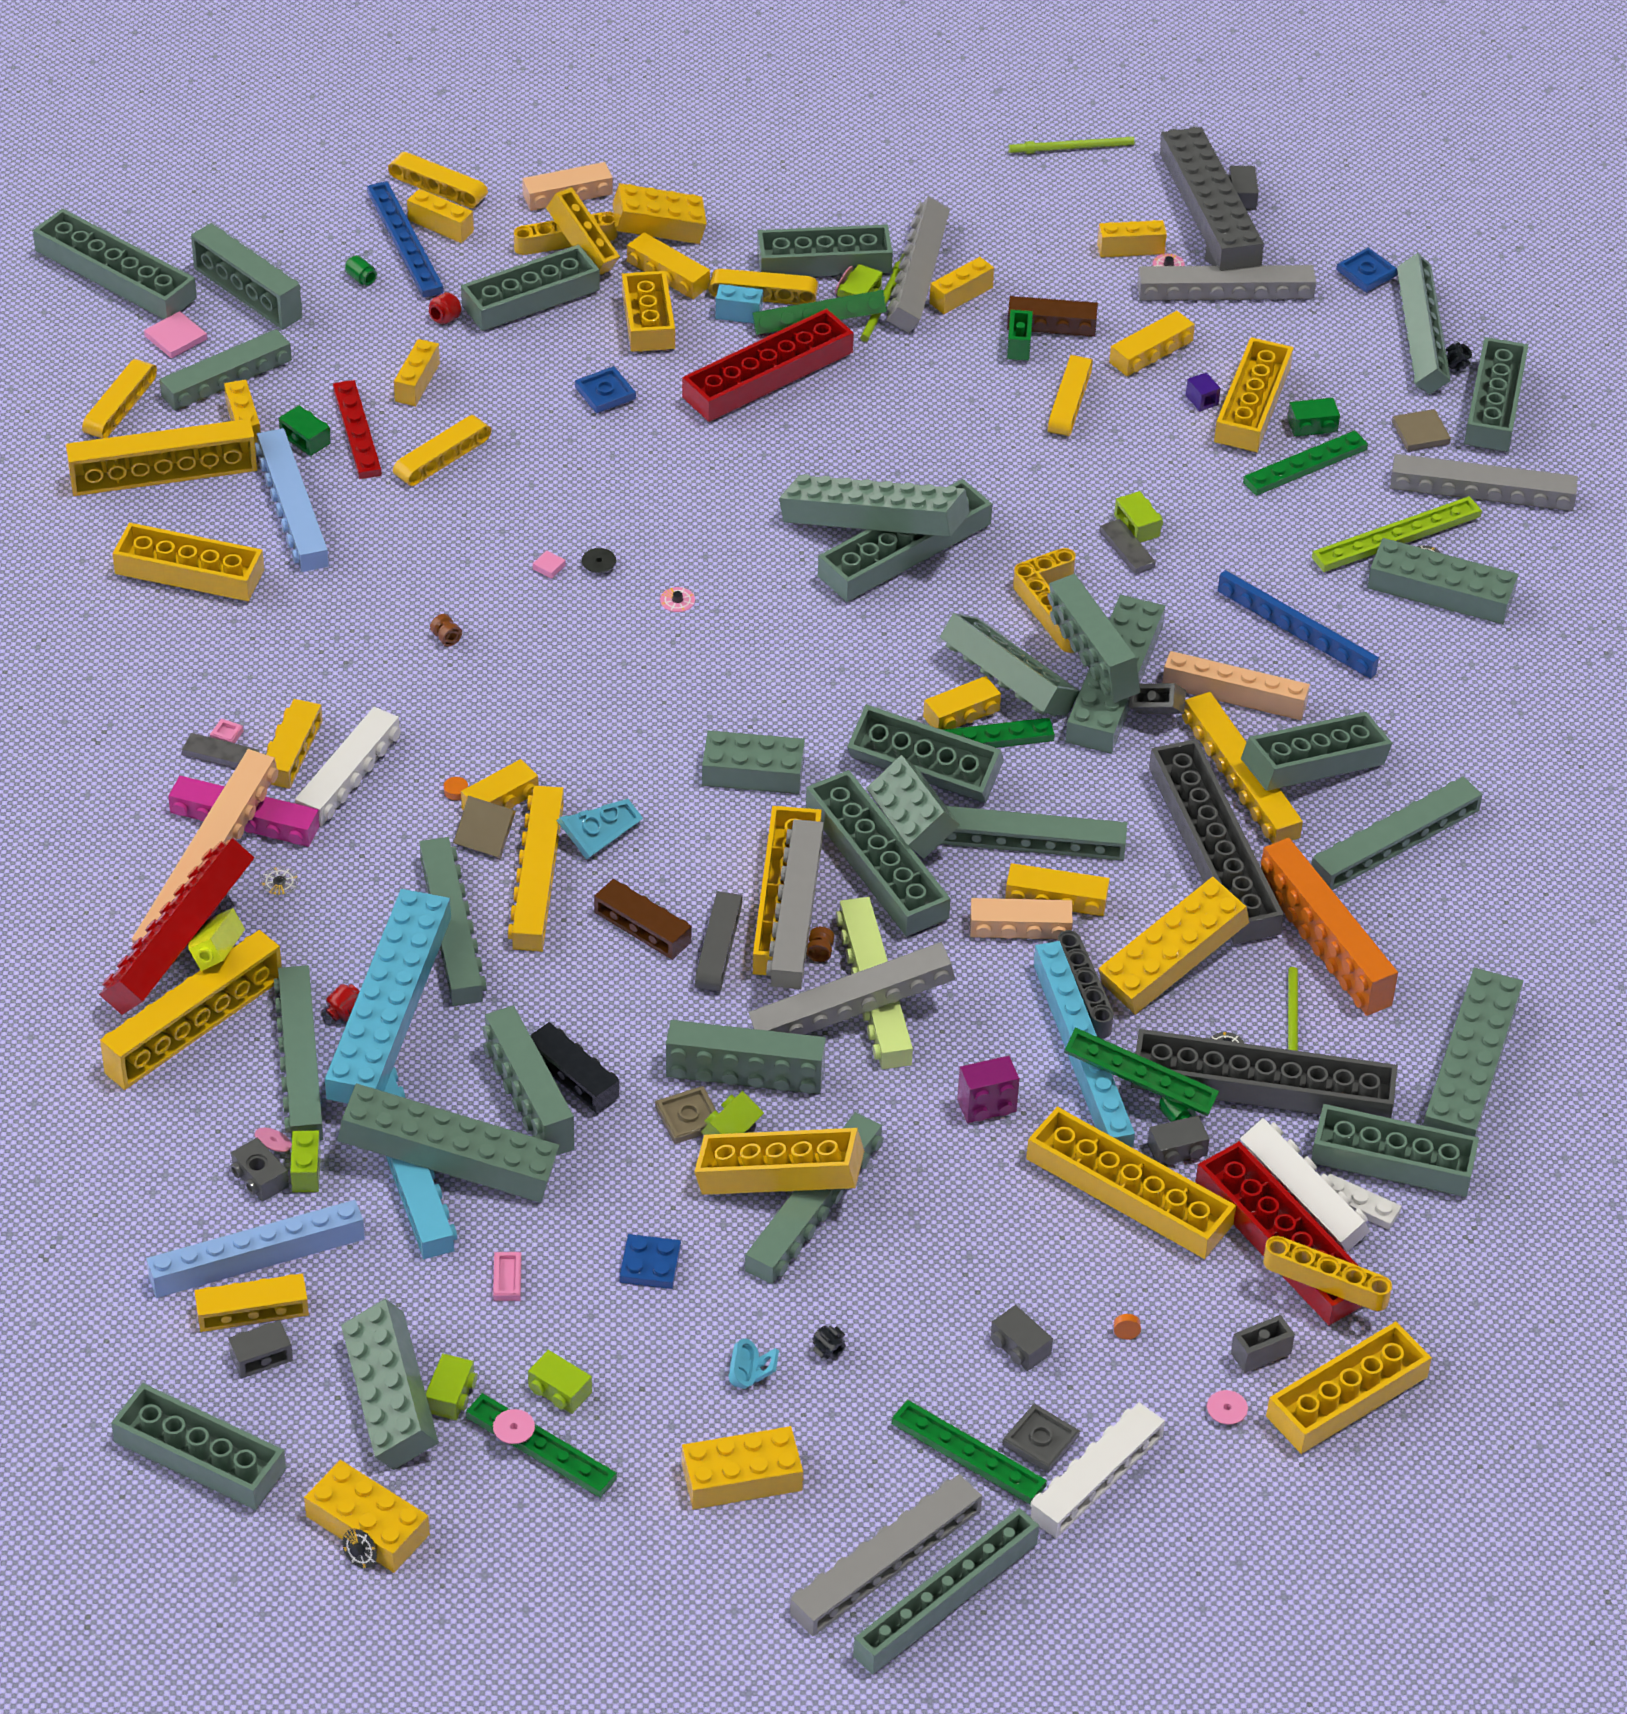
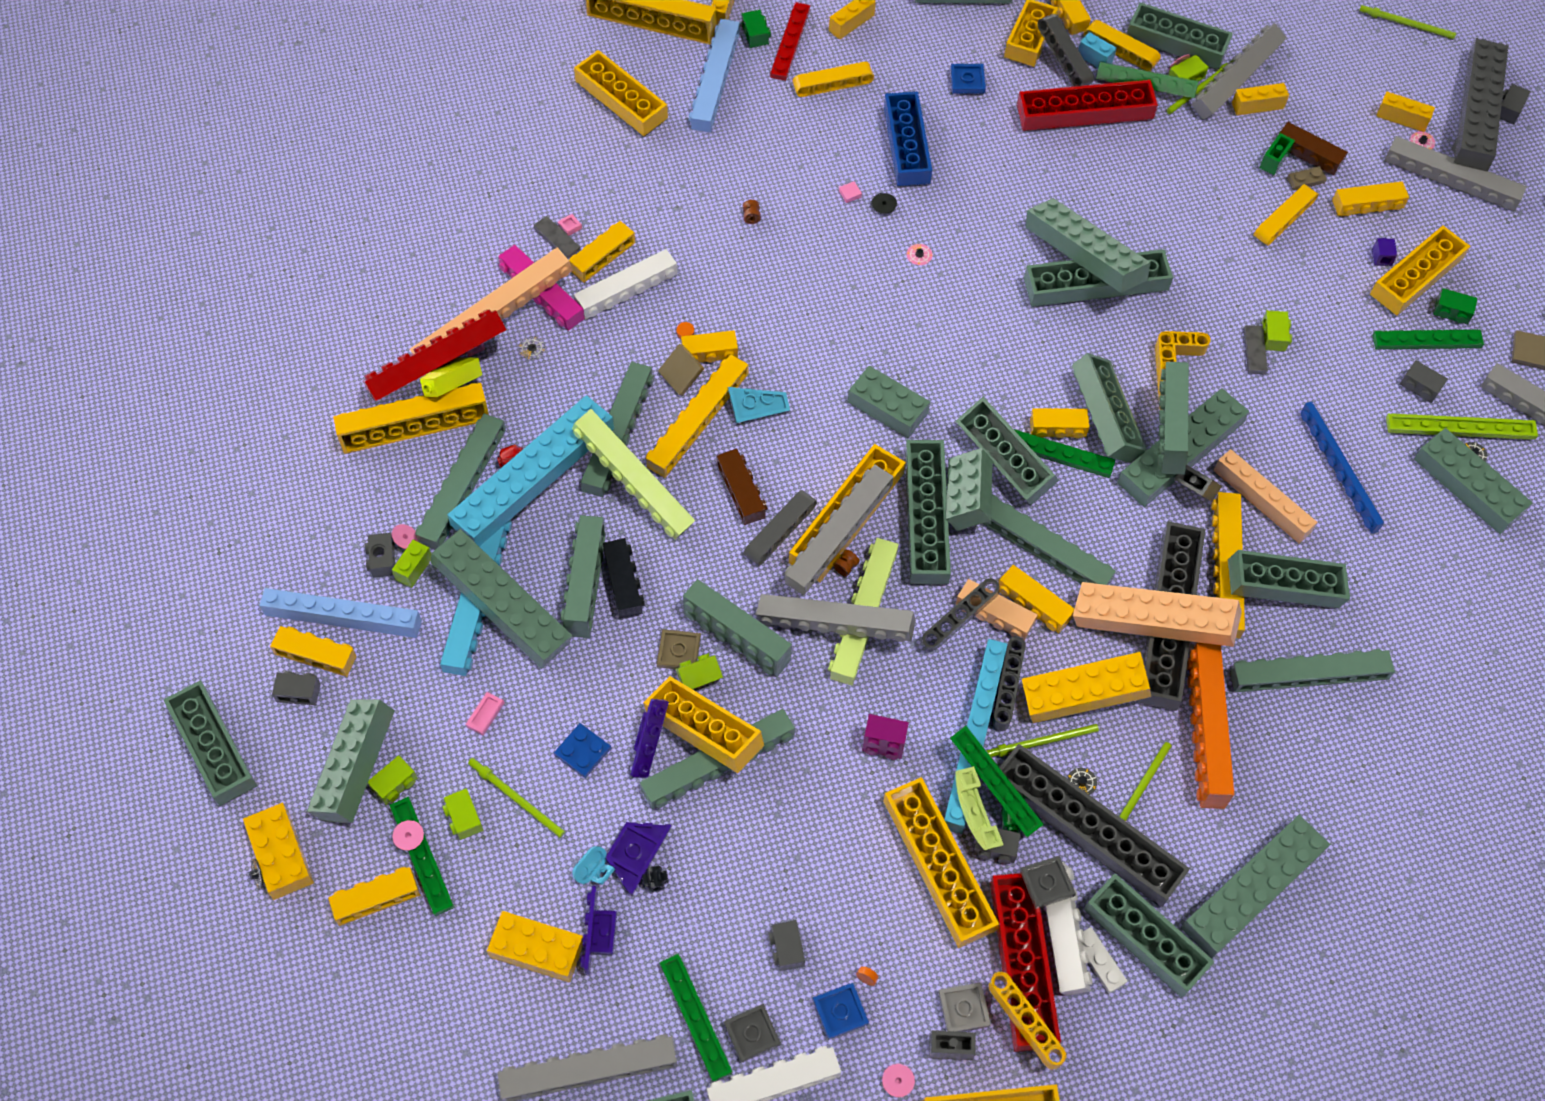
camera: 30 degrees right, 15 degrees up
(515, 949) = (632, 474): none -> yellowish green brick
(515, 1507) = (374, 895): none -> yellow brick
(555, 1332) = (487, 774): none -> lime bar
(581, 479) = (907, 138): none -> blue brick
(696, 311) = (1065, 51): none -> dark grey beam
(722, 1203) = (648, 737): none -> dark purple bracket
(787, 1325) = (635, 851): none -> dark purple wing
(805, 1419) = (600, 933): none -> dark purple bracket
(989, 945) = (964, 605): none -> dark grey beam
(1071, 345) = (1309, 177): none -> dark tan plate
(1113, 1088) = (974, 811): none -> yellowish green slope
(1121, 1372) = (840, 1011): none -> blue plate
(1171, 1014) = (1003, 749): none -> lime bar
(1202, 837) = (1158, 614): none -> light nougat brick
(1248, 1305) = (964, 1007): none -> light grey plate
(1260, 1141) = (1047, 882): none -> dark grey plate
(1329, 505) = (1423, 381): none -> dark grey brick

